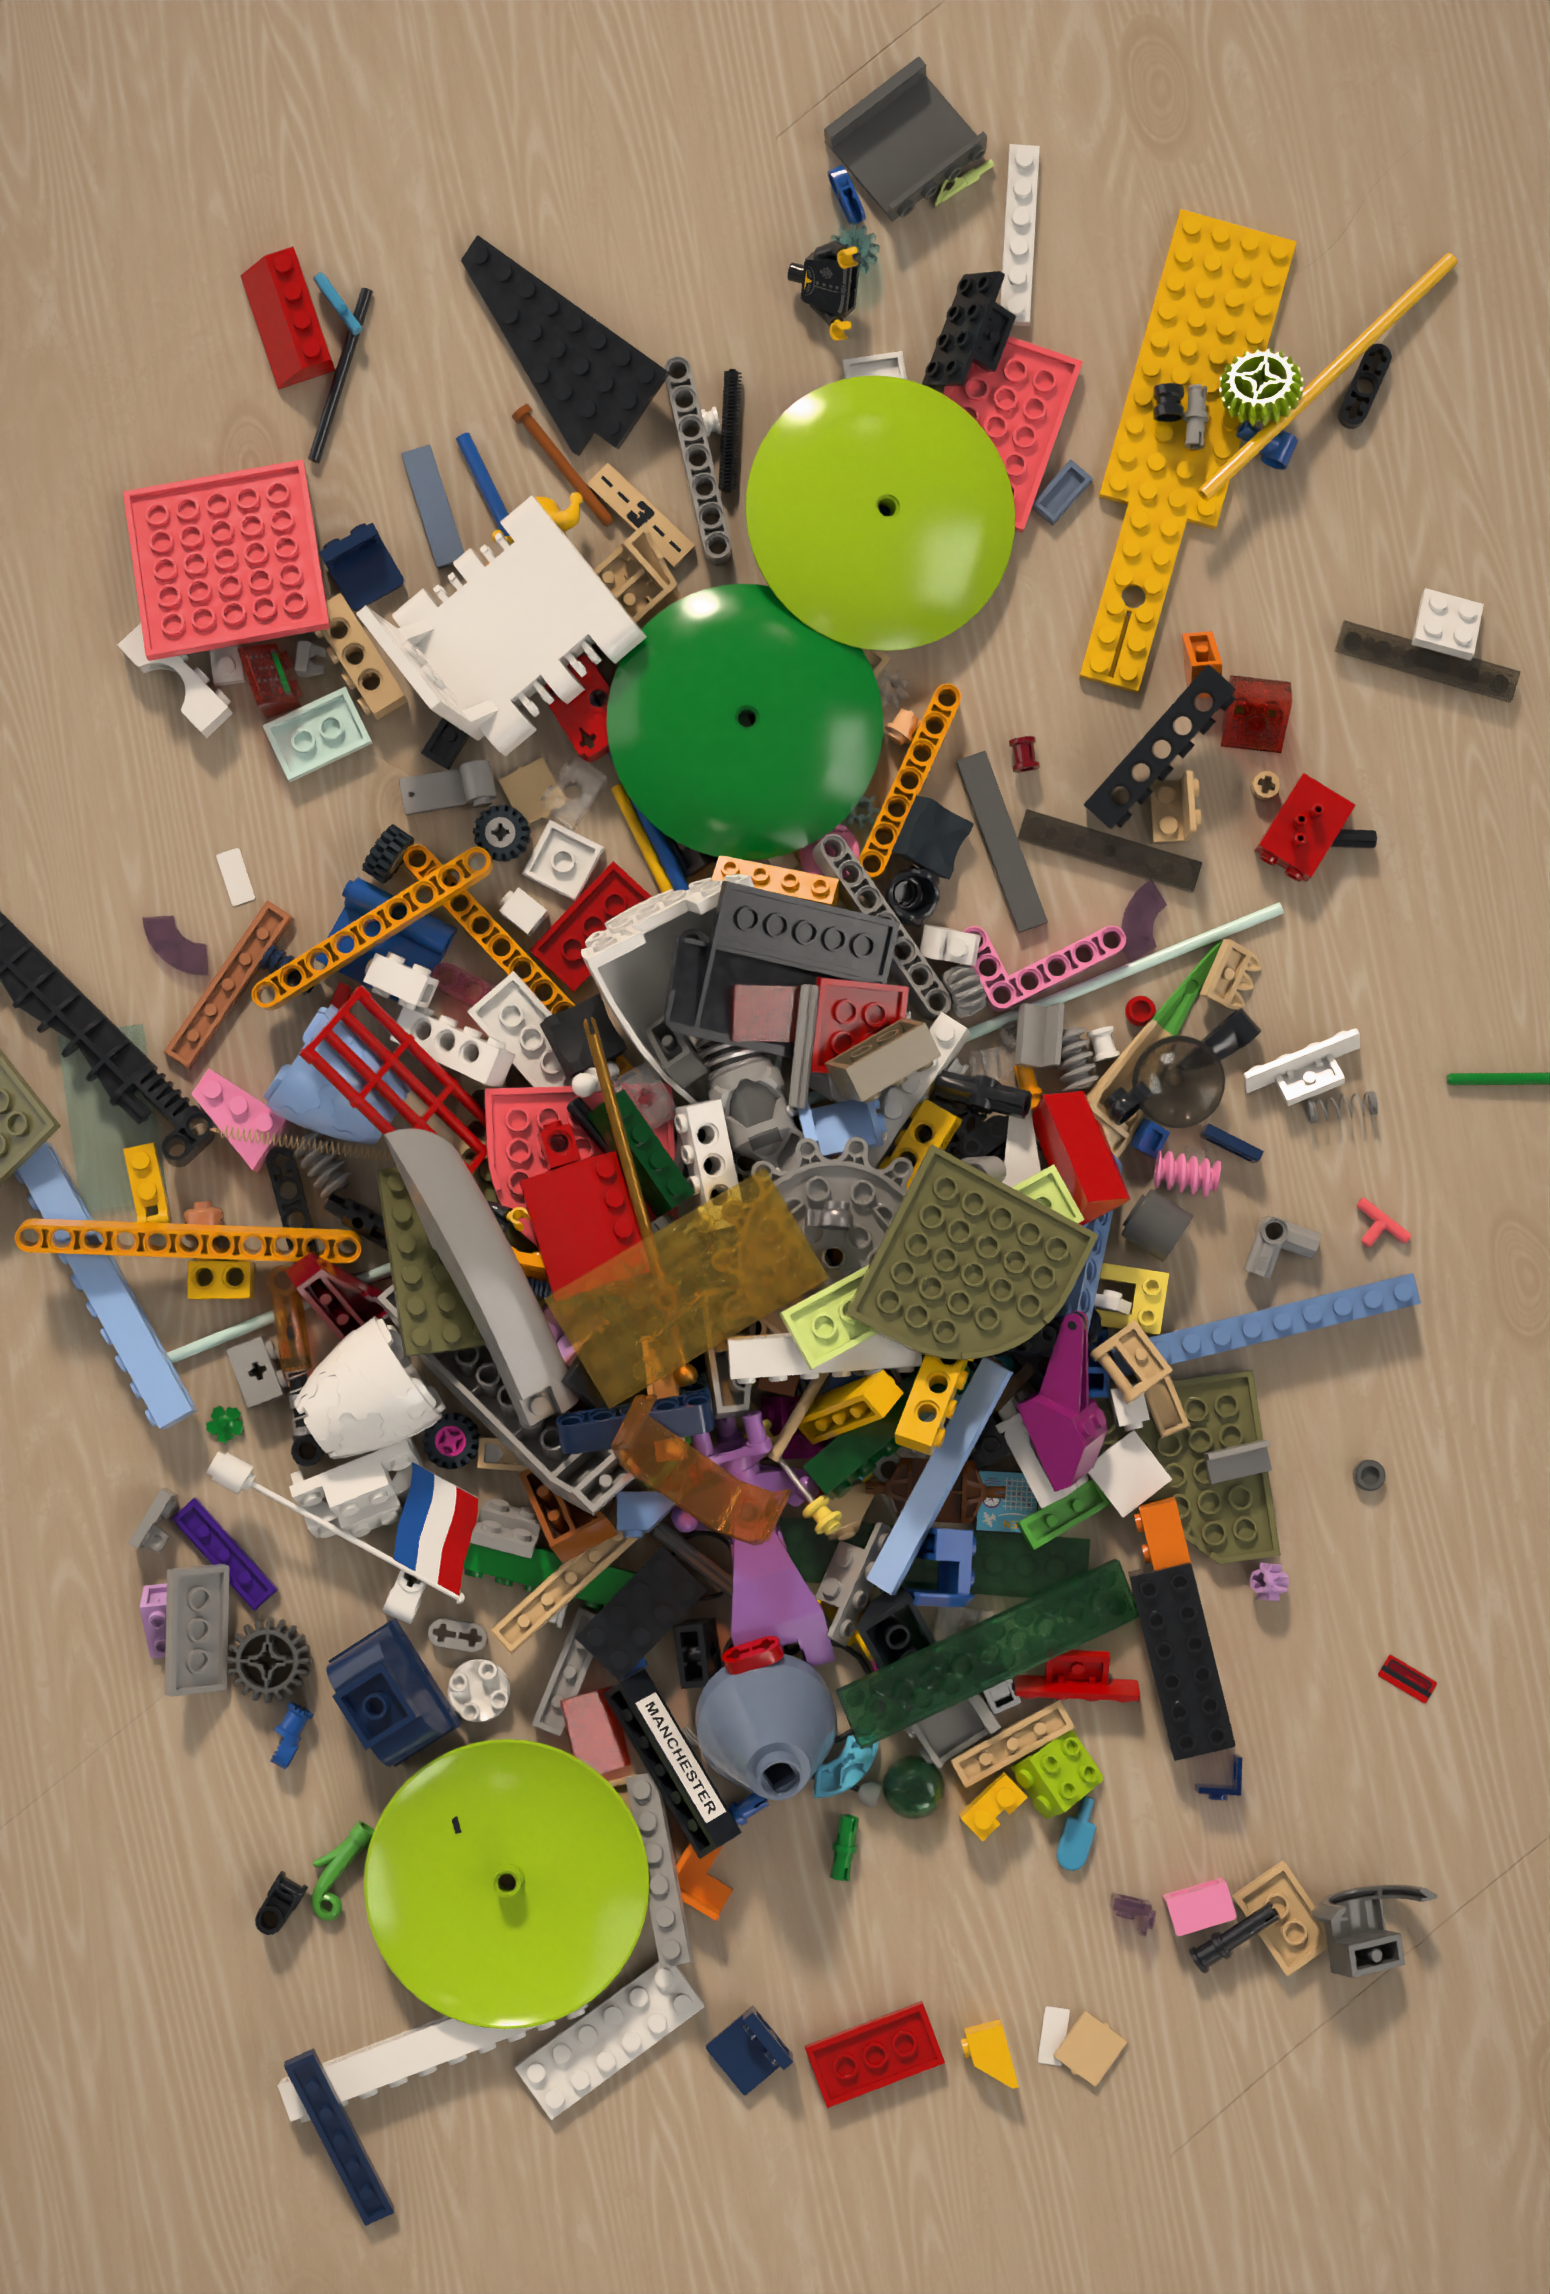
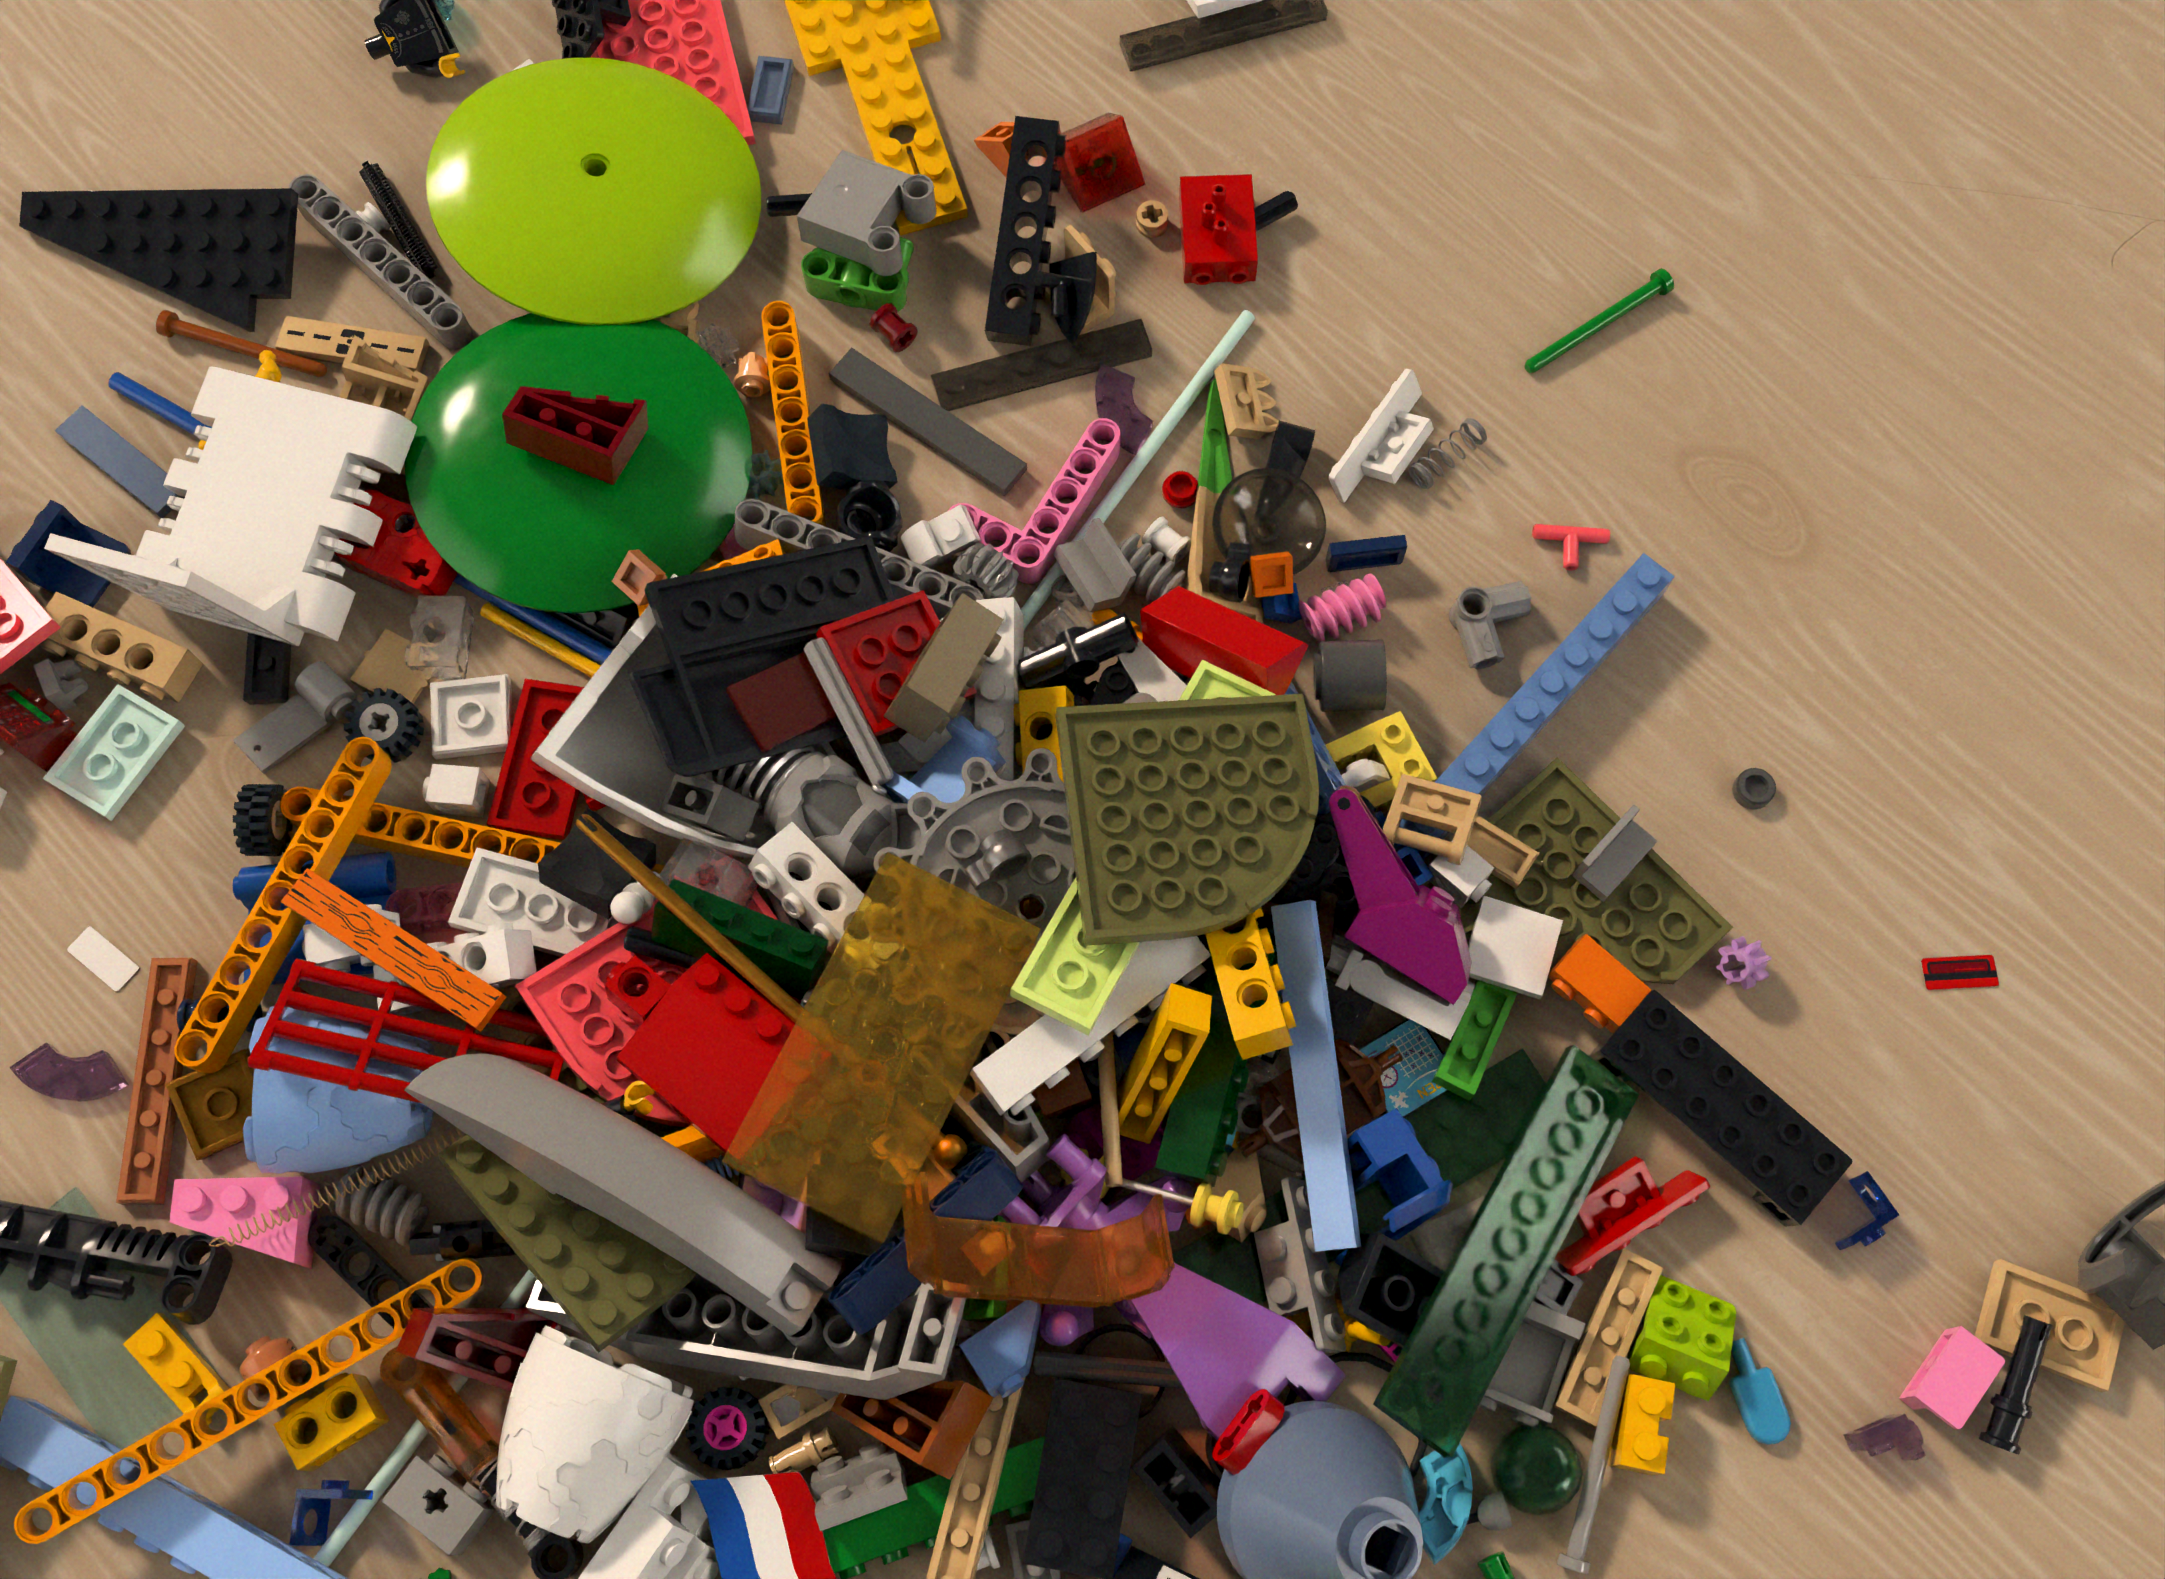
camera: 30 degrees left, 15 degrees down
(188, 1321) = (320, 1502): none -> clear blue bracket
(260, 1033) = (214, 1105): none -> pearl gold tile
(423, 1014) = (394, 949): none -> orange tile
(487, 1486) = (808, 1452): none -> tan pin
(728, 850) = (635, 574): none -> nougat tile
(749, 722) = (576, 431): none -> dark red wedge
(898, 1850) = (1596, 1468): none -> light grey bar
(1020, 697) = (854, 282): none -> bright green piece
(1052, 651) = (855, 210): none -> light grey piece
(1151, 1123) = (1271, 574): none -> orange tile
(1162, 818) = (1071, 291): none -> black shield

